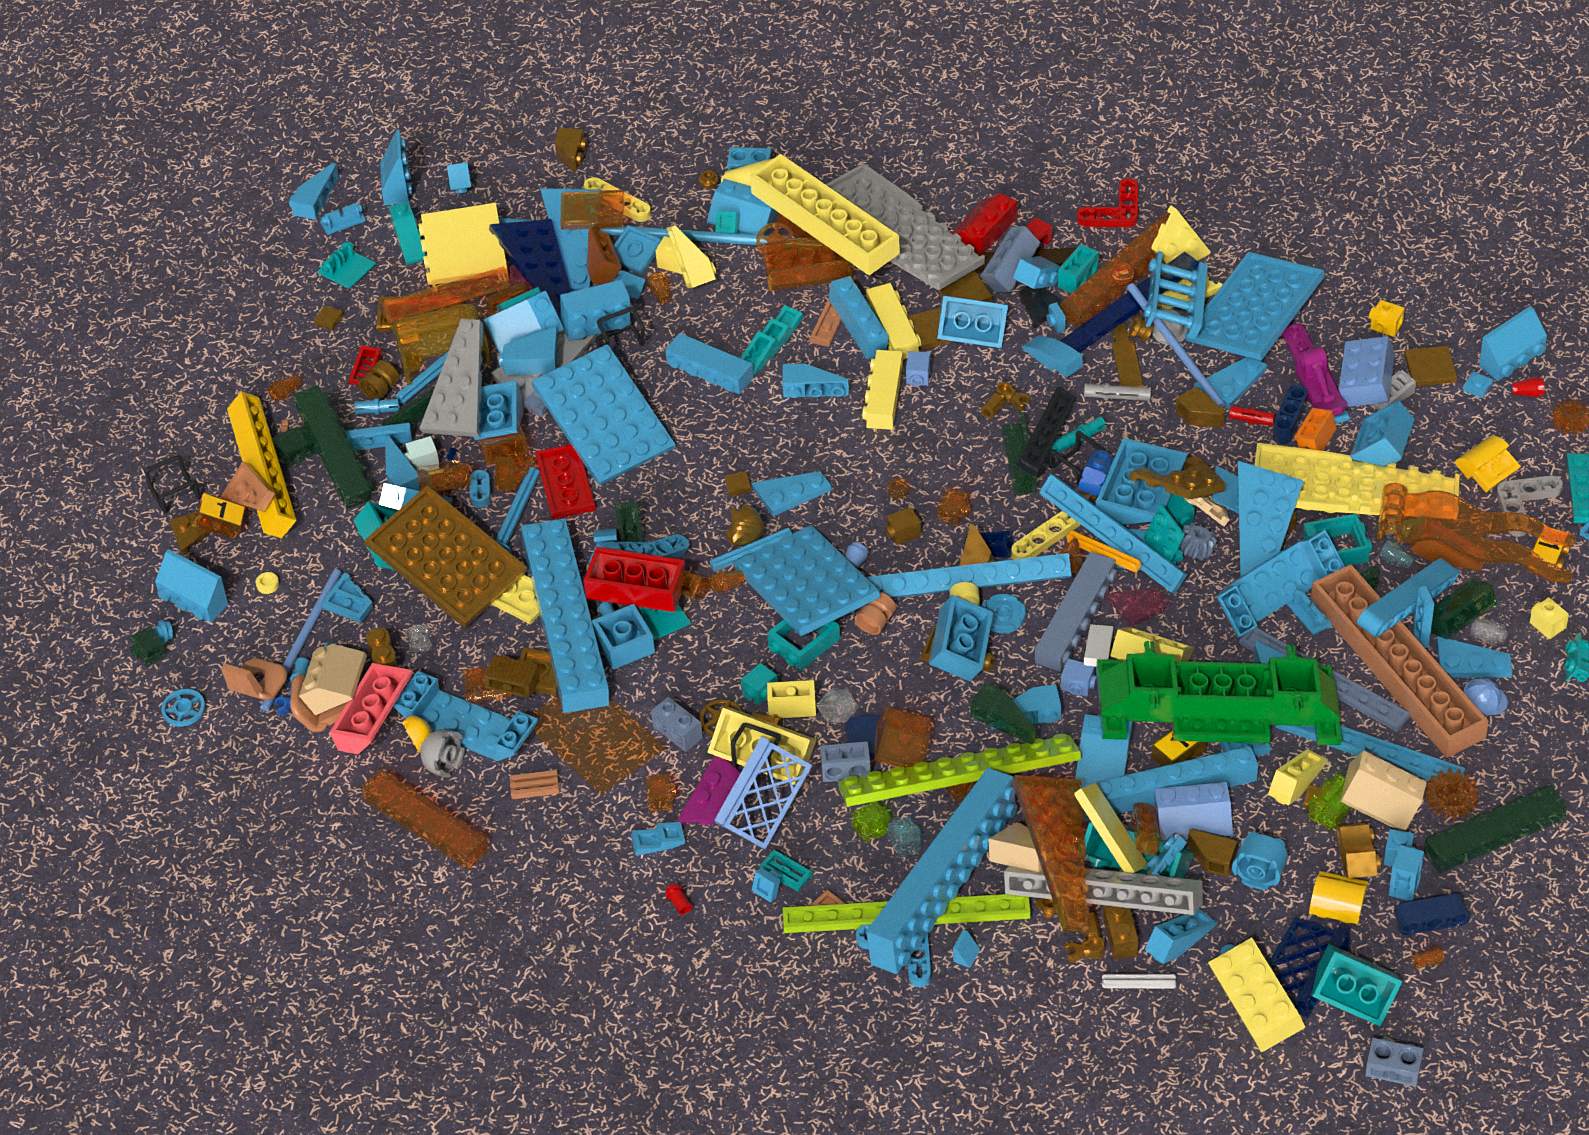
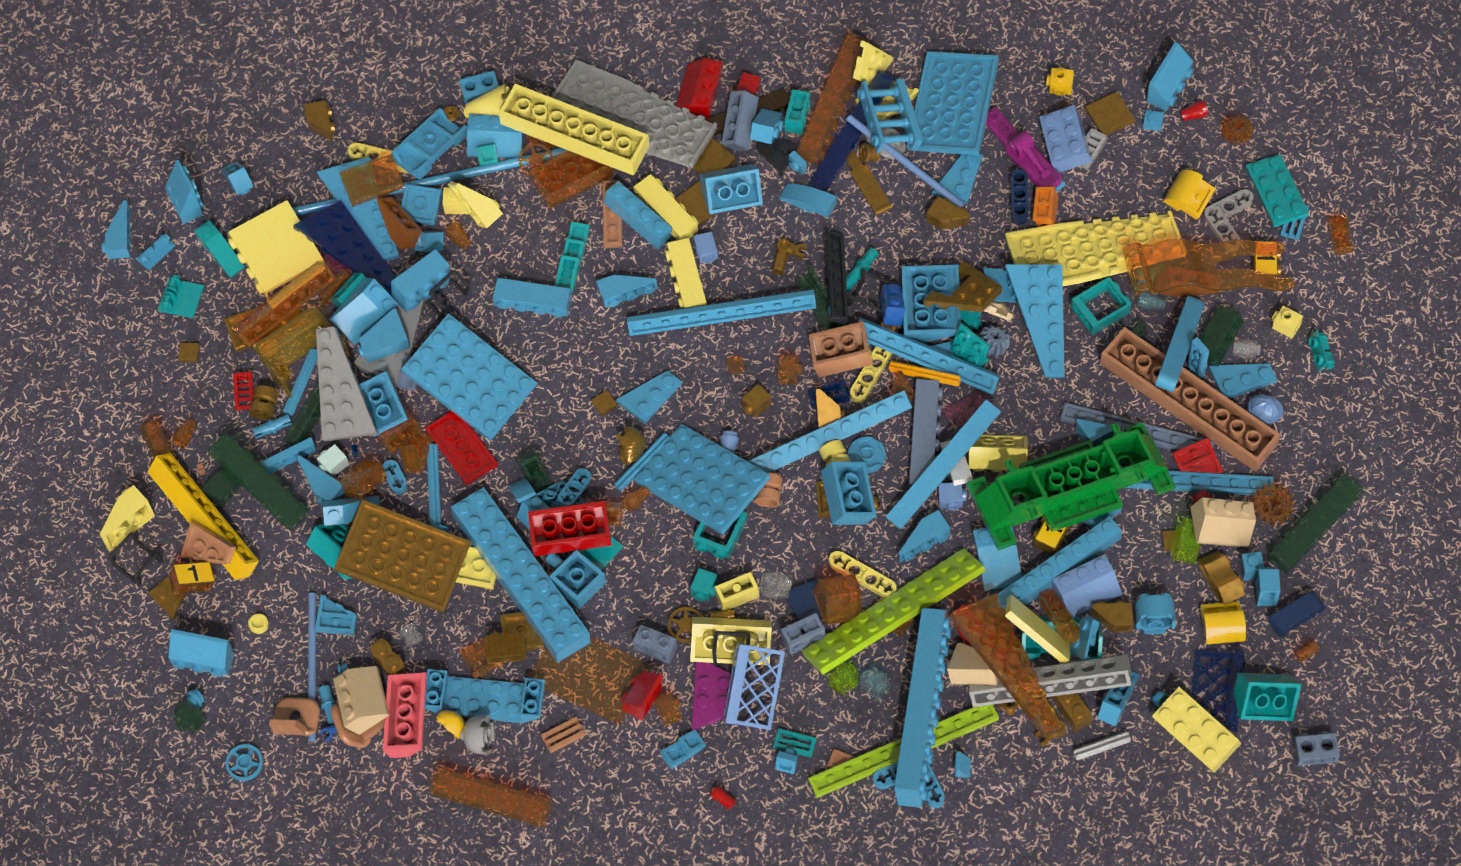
camera: 20 degrees left, 15 degrees up
(183, 436) = (127, 516): none -> light yellow slope
(252, 380) = (155, 438): none -> clear orange brick
(631, 772) = (643, 693): none -> red slope
(667, 194) = (427, 144): none -> dark azure piece
(905, 431) = (721, 312): none -> dark azure plate
(943, 727) = (865, 571): none -> light yellow beam
(999, 711) = (907, 551): clear green slope -> none
(1018, 500) = (840, 349): none -> nougat slope
(1080, 638) = (943, 464): none -> dark azure tile
(1117, 213) = (805, 43): red beam -> none
(1117, 392) = (875, 218): light grey pin -> none
(1123, 273) = (837, 106): clear orange tile -> none
(1266, 417) = (1002, 207): red pin -> none
(1276, 579) = (1072, 358): dark azure slope -> none
(1295, 776) = (1151, 527): light yellow slope -> none
(1308, 613) = (1103, 376): dark azure hinge -> none
(1382, 721) = (1198, 458): none -> red wing
(1383, 435) = (1100, 195): dark azure slope -> none

